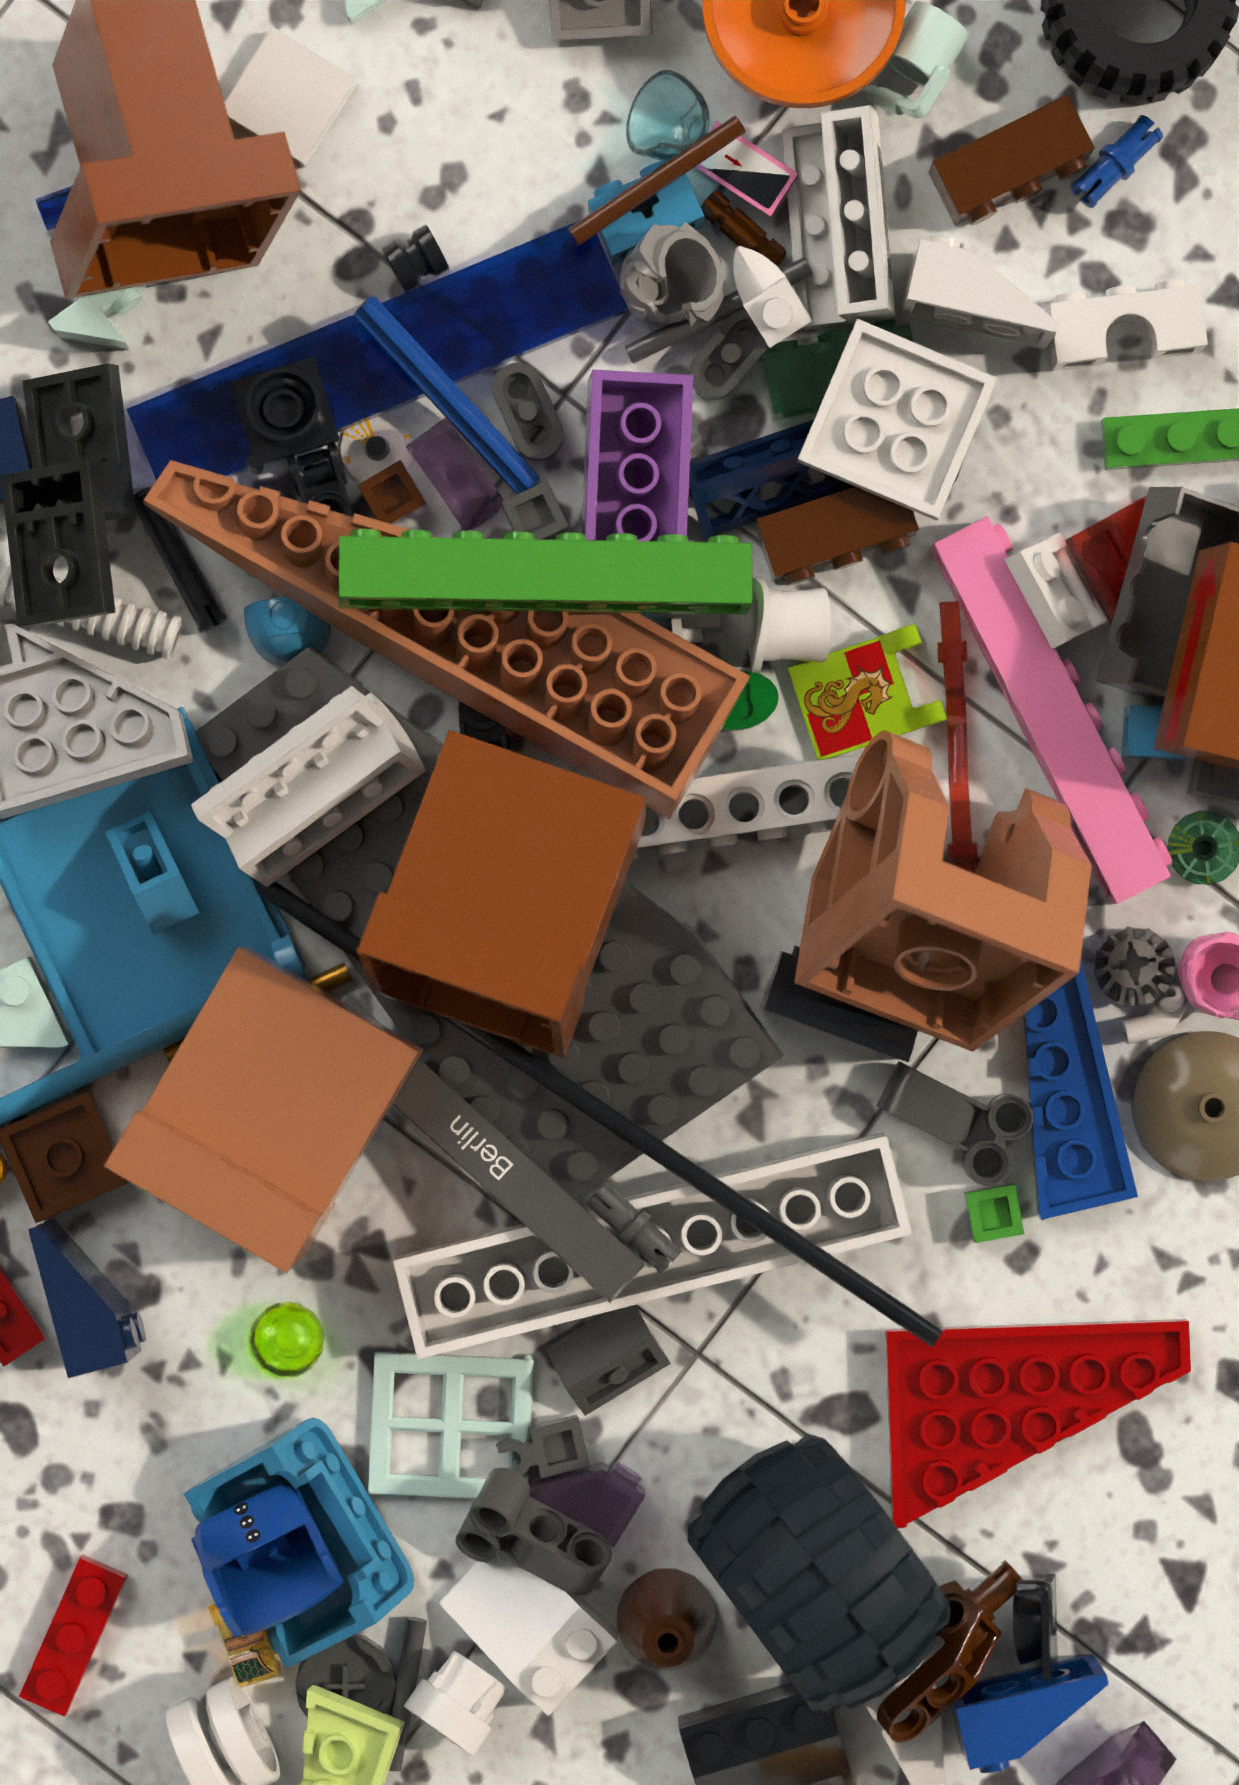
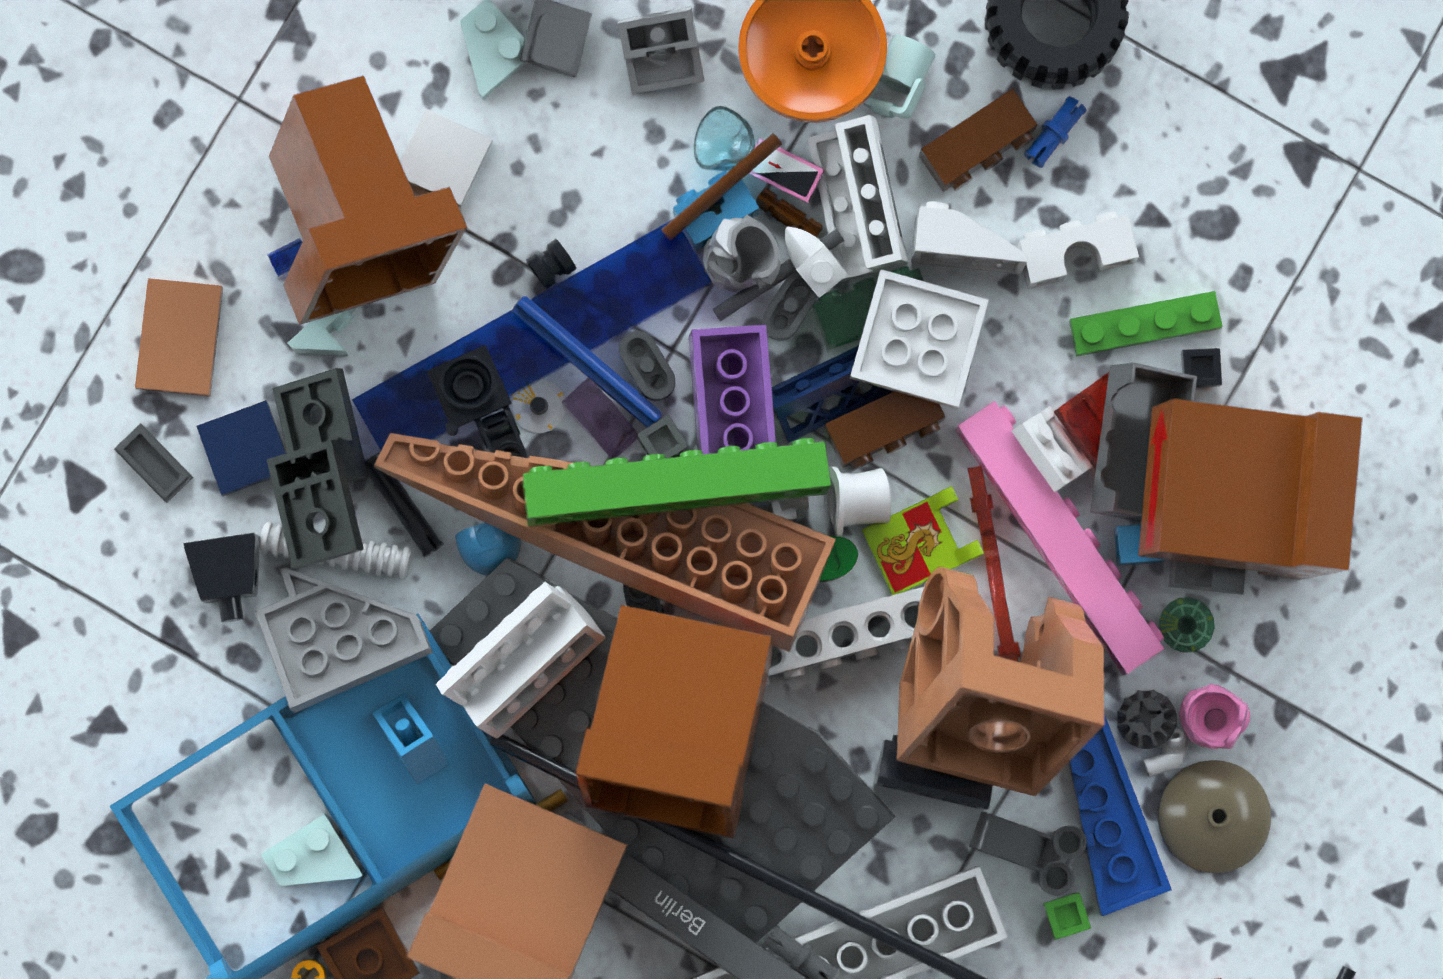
camera: 10 degrees left, 5 degrees down
(392, 493) = (554, 437): reddish brown plate -> none

